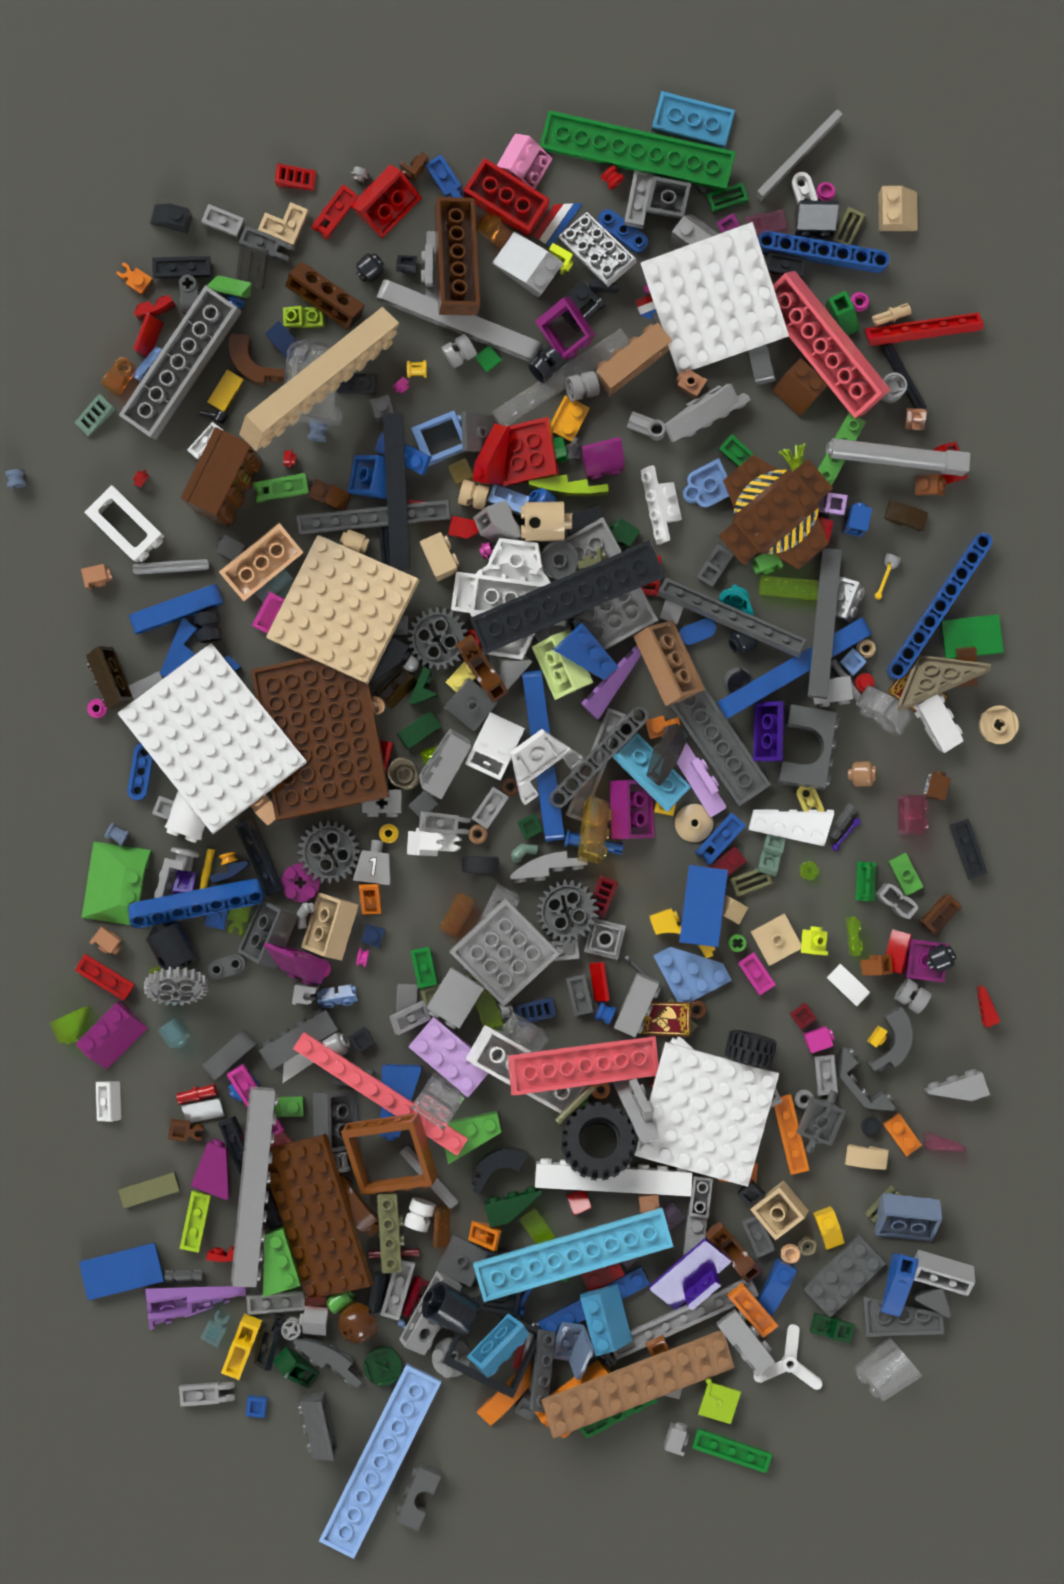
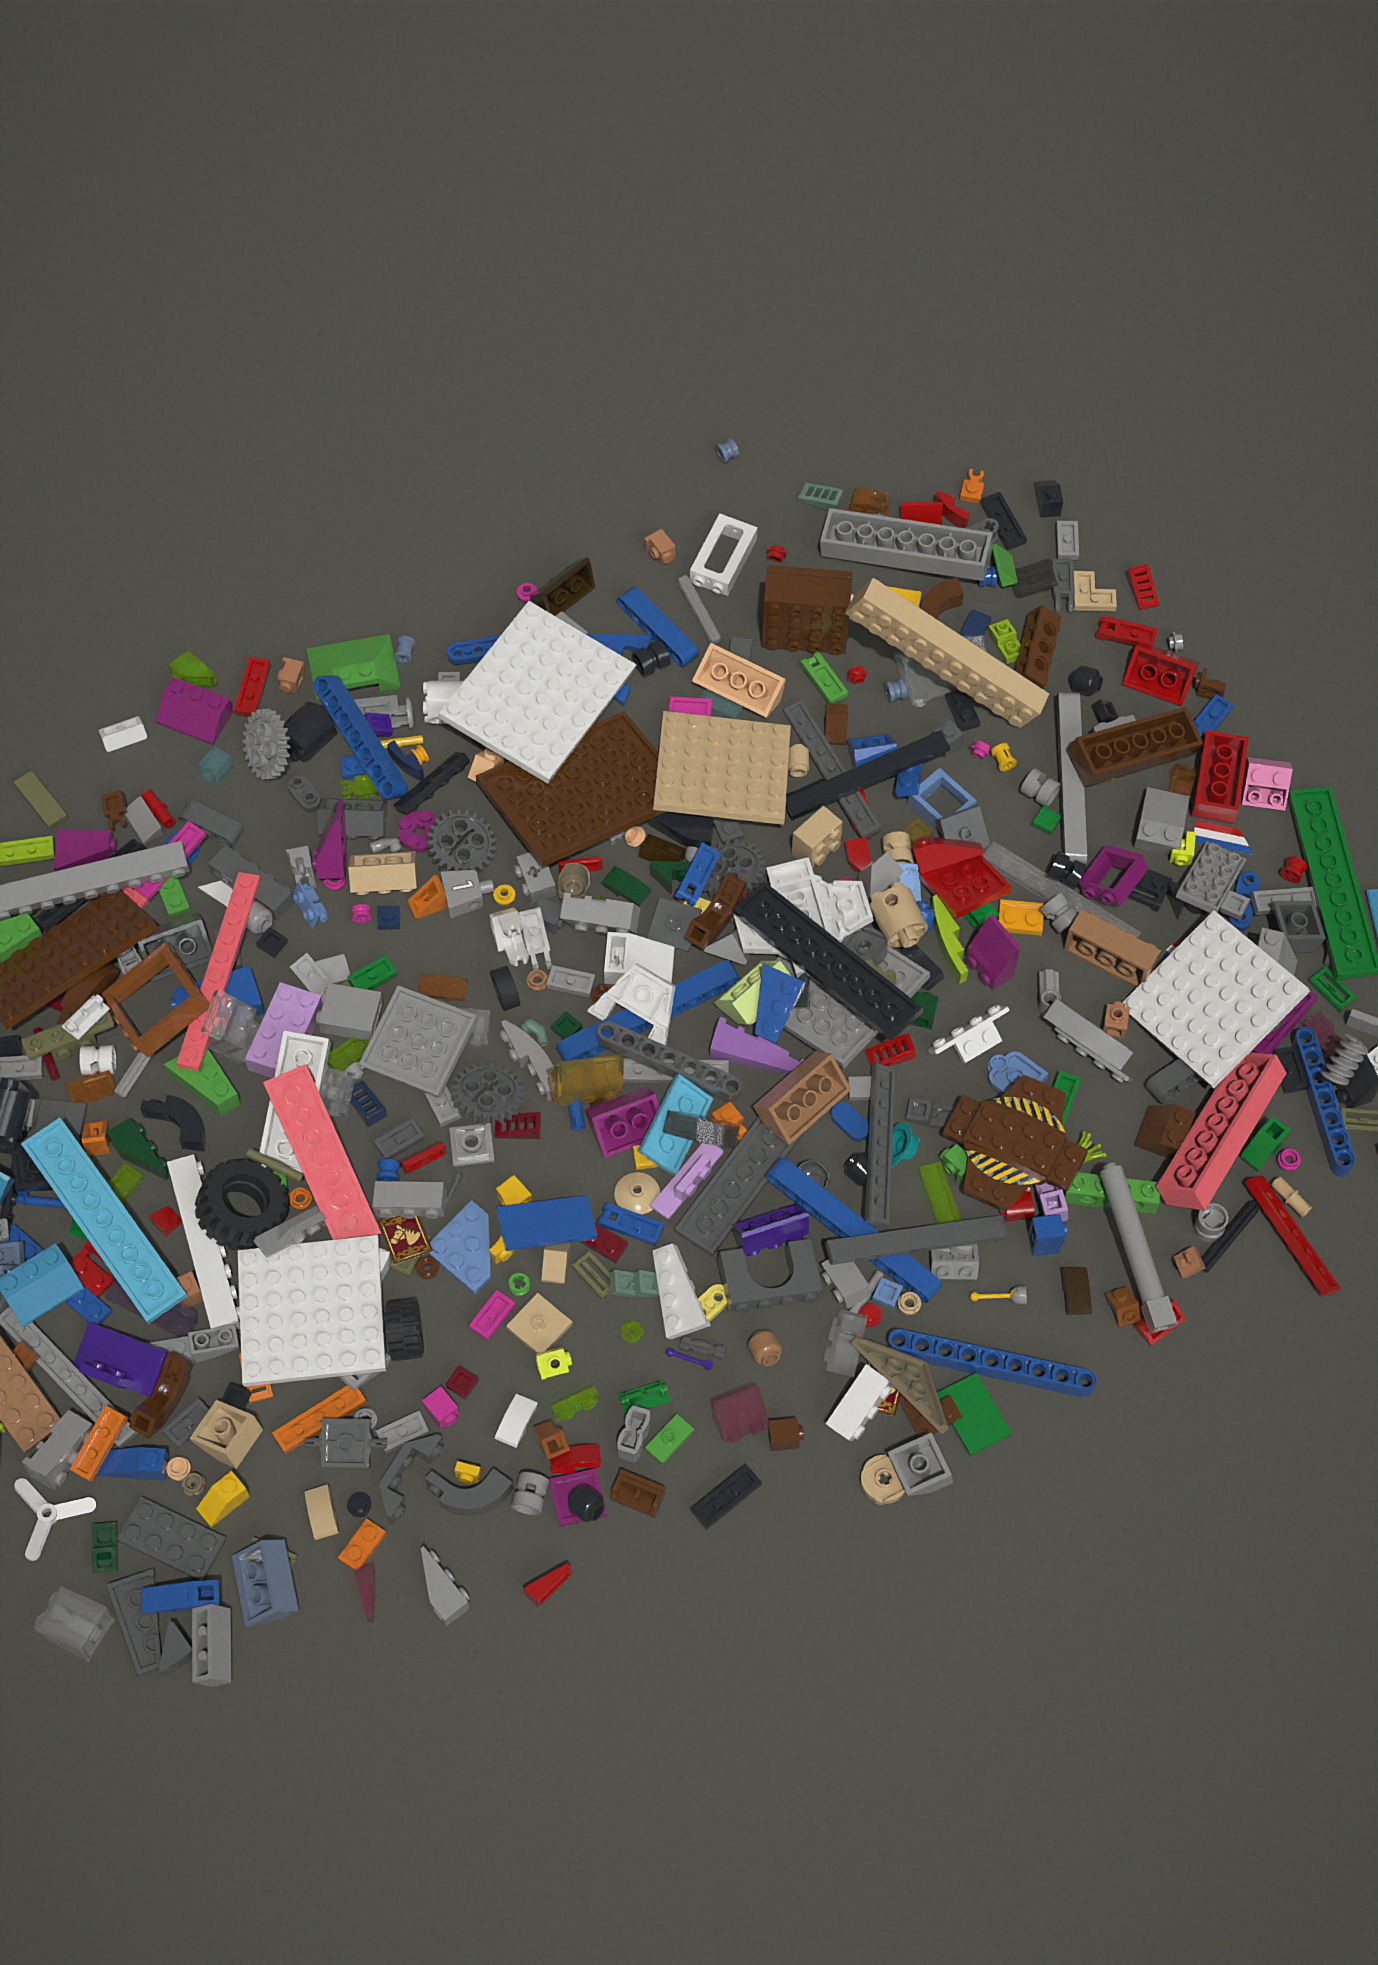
camera: 70 degrees right, 25 degrees down
(385, 1216) = (86, 1017): none -> white hinge
(438, 669) = (697, 873): none -> blue plate
(631, 241) = (1235, 905): none -> light grey plate
(809, 220) = (1346, 1061): none -> light grey piece
(1003, 695) = (921, 1466): none -> light grey slope

